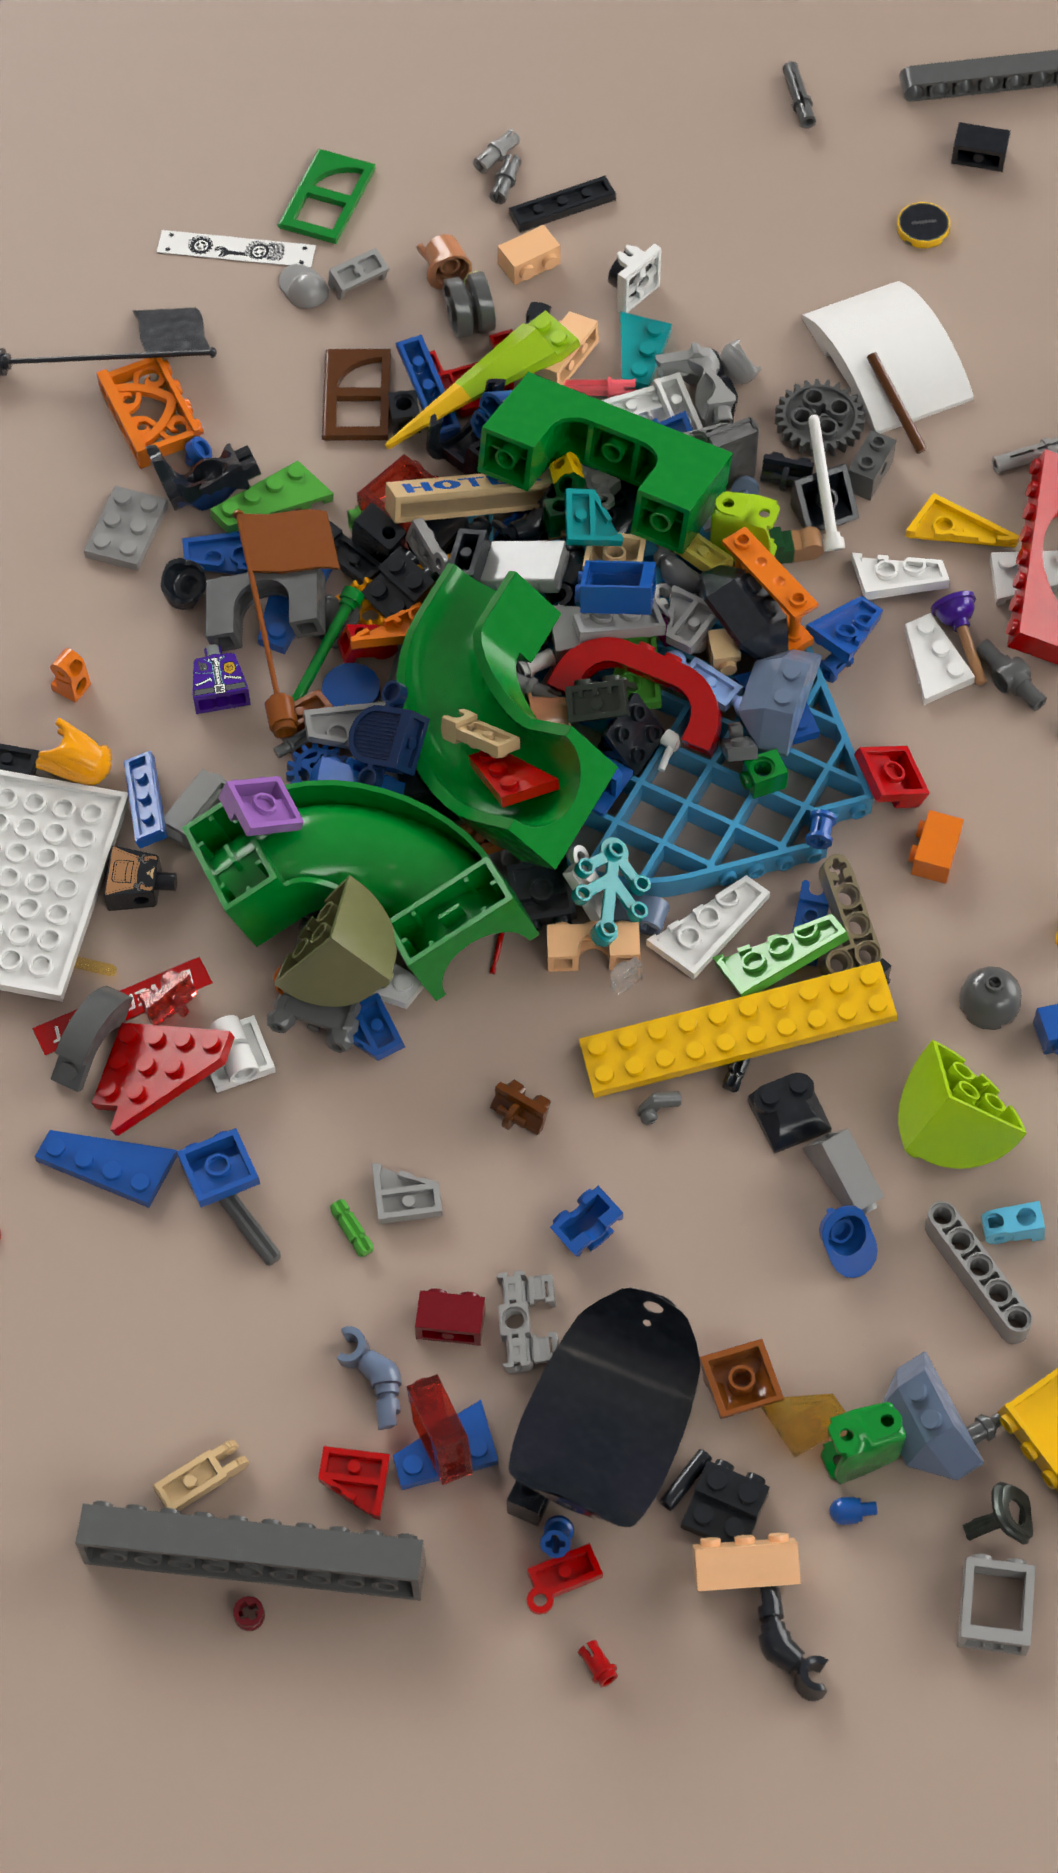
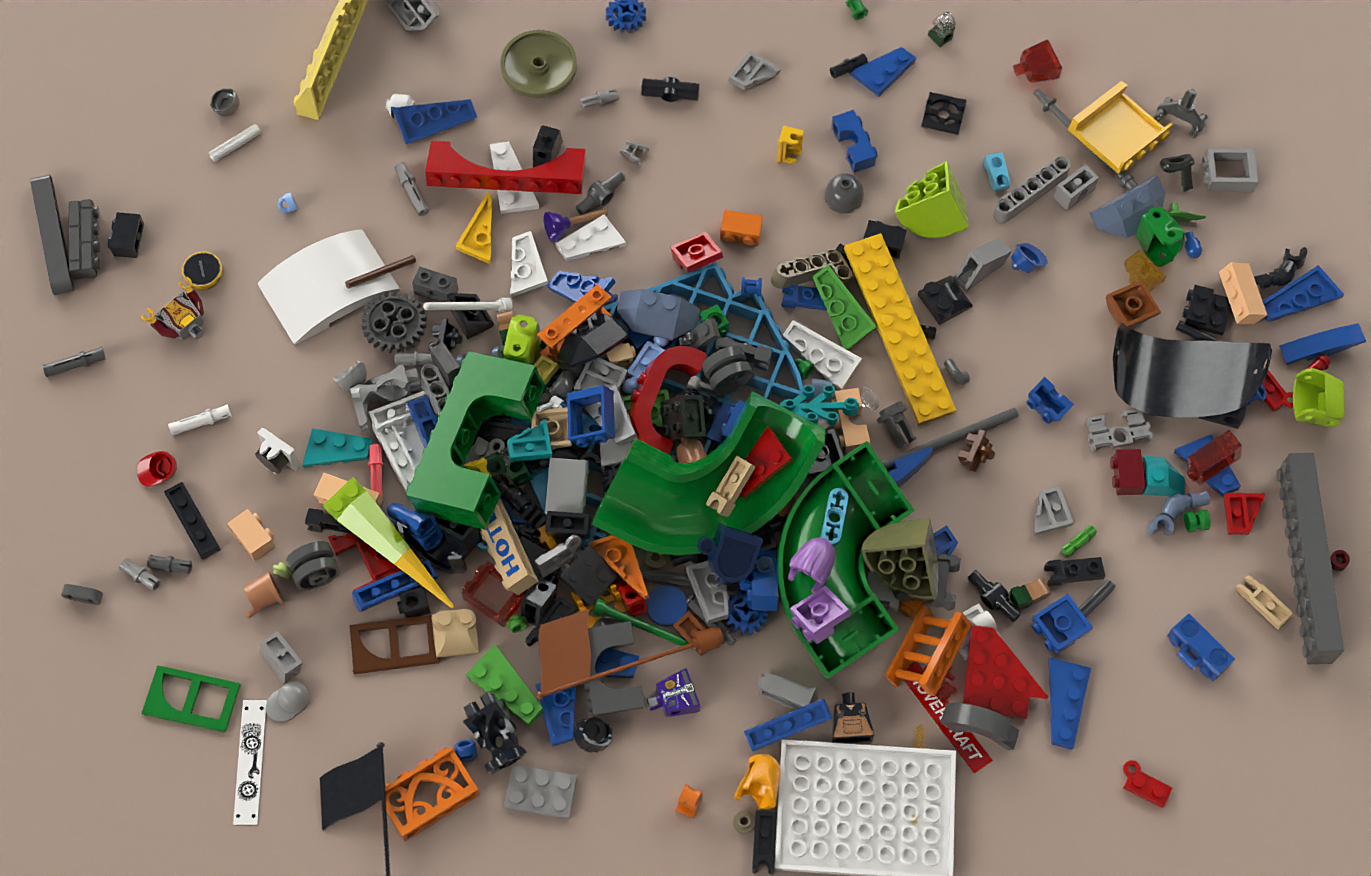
camera: 100 degrees left, 5 degrees up
(30, 732) = (744, 828): none -> dark tan plate
(146, 1363) = (1201, 646): none -> blue piece
(202, 993) = (943, 656): none -> orange fence
(277, 1137) = (1029, 593): none -> leg
(283, 1092) = (994, 596): none -> black pin
(304, 1213) = (1075, 570): none -> black plate
(338, 809) = (814, 559): none -> medium lavender hair
(351, 1402) = (1197, 521): none -> green wheel
(355, 453) = (455, 633): none -> tan slope
(390, 861) = (840, 510): none -> medium azure beam
(442, 1355) = (1161, 477): none -> teal slope
(479, 95) = (82, 594): none -> dark grey beam
(498, 999) = (908, 466): none -> blue slope
(529, 1639) = (1318, 398): none -> lime piece
(546, 1071) = (957, 435): none -> dark grey piece
(589, 998) = (893, 415): none -> dark grey piece
(636, 169) = (156, 468): none -> red cap
(638, 1680) = (1322, 343): none -> blue slope
(651, 556) = (555, 402): none -> white hand
(676, 770) = (727, 370): none -> dark grey wheel
(687, 897) = (805, 368): none -> green tile
(701, 820) = (758, 356): none -> dark grey plate
(702, 220) = (196, 421): none -> white pin
(740, 1676) = (1302, 294): none -> blue wing
(765, 438) = (413, 358): none -> light grey axle
(851, 195) = (180, 316): none -> torso
(899, 1040) = (893, 236): none -> black brick
(913, 1508) = (1183, 215): none -> bright green bar
(972, 1335) = (1076, 187): none -> light grey brick
(978, 104) = (82, 239): none -> dark grey brick
(1019, 315) = (290, 201): none -> light blue tile

